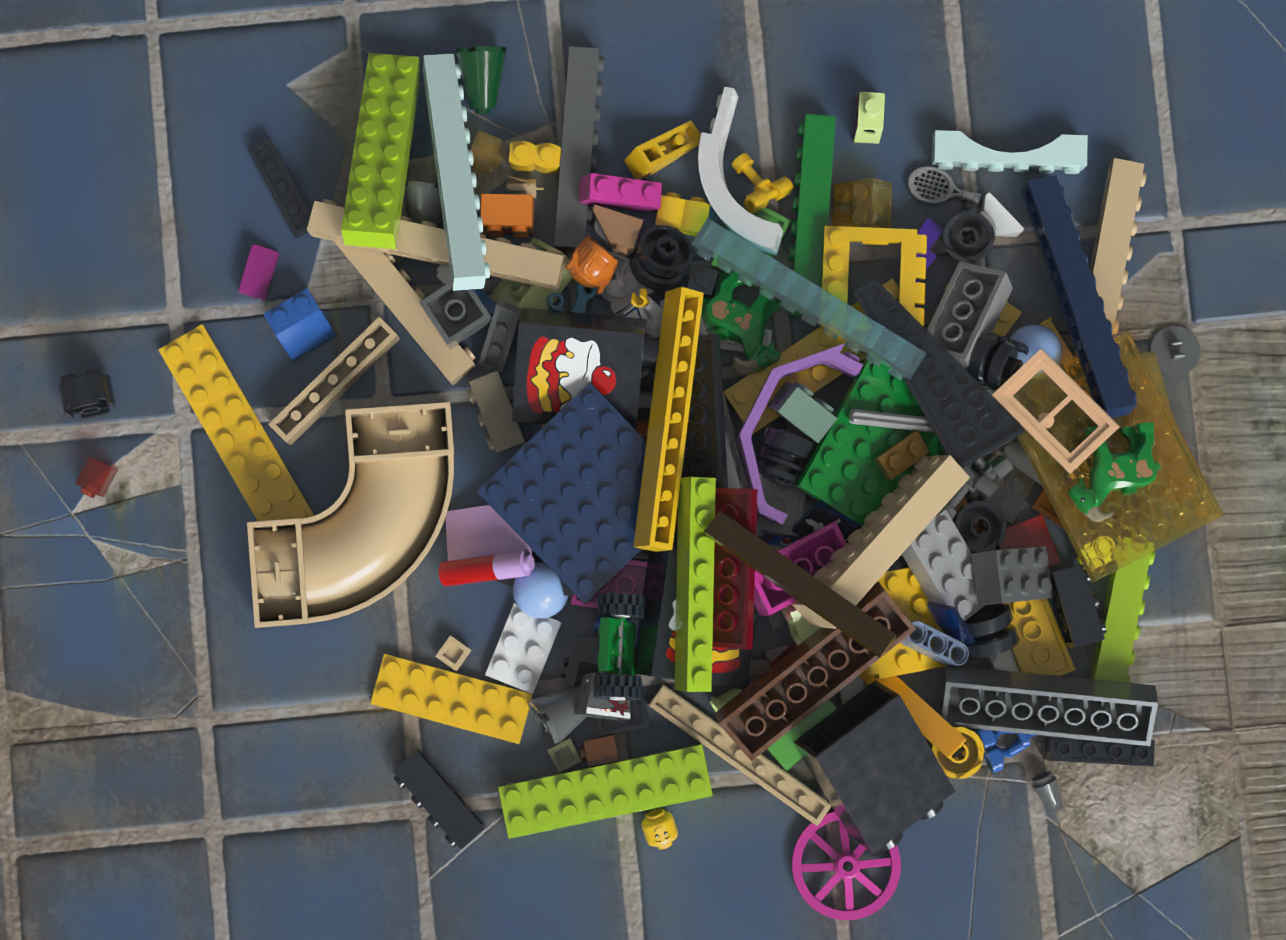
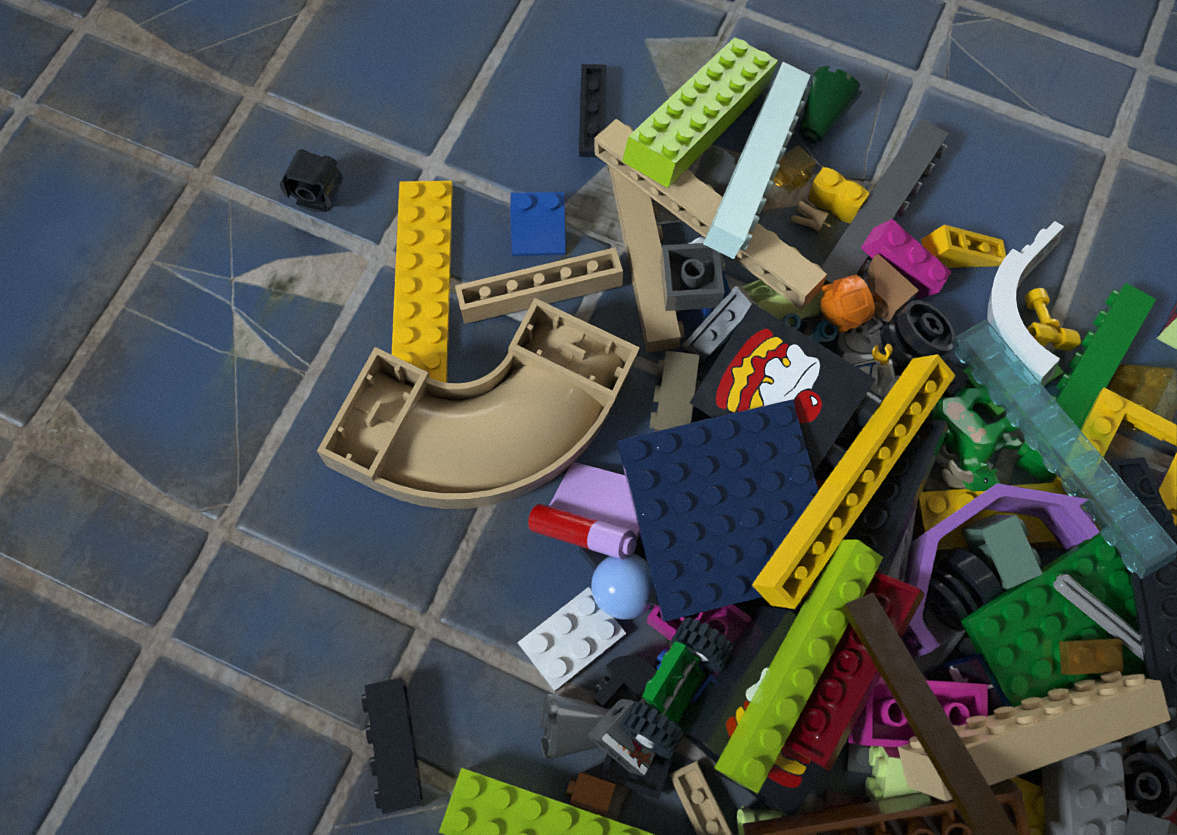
camera: 30 degrees right, 15 degrees down
(95, 478) = (272, 256): clear red brick -> none
(258, 272) = (527, 165): magenta slope -> none
(451, 698) = (470, 649): yellow plate -> none
(453, 653) = (499, 602): tan plate -> none
(508, 215) = (790, 220): orange brick -> none
(564, 755) = (550, 776): olive plate -> none
(683, 214) = (959, 311): yellow brick -> none

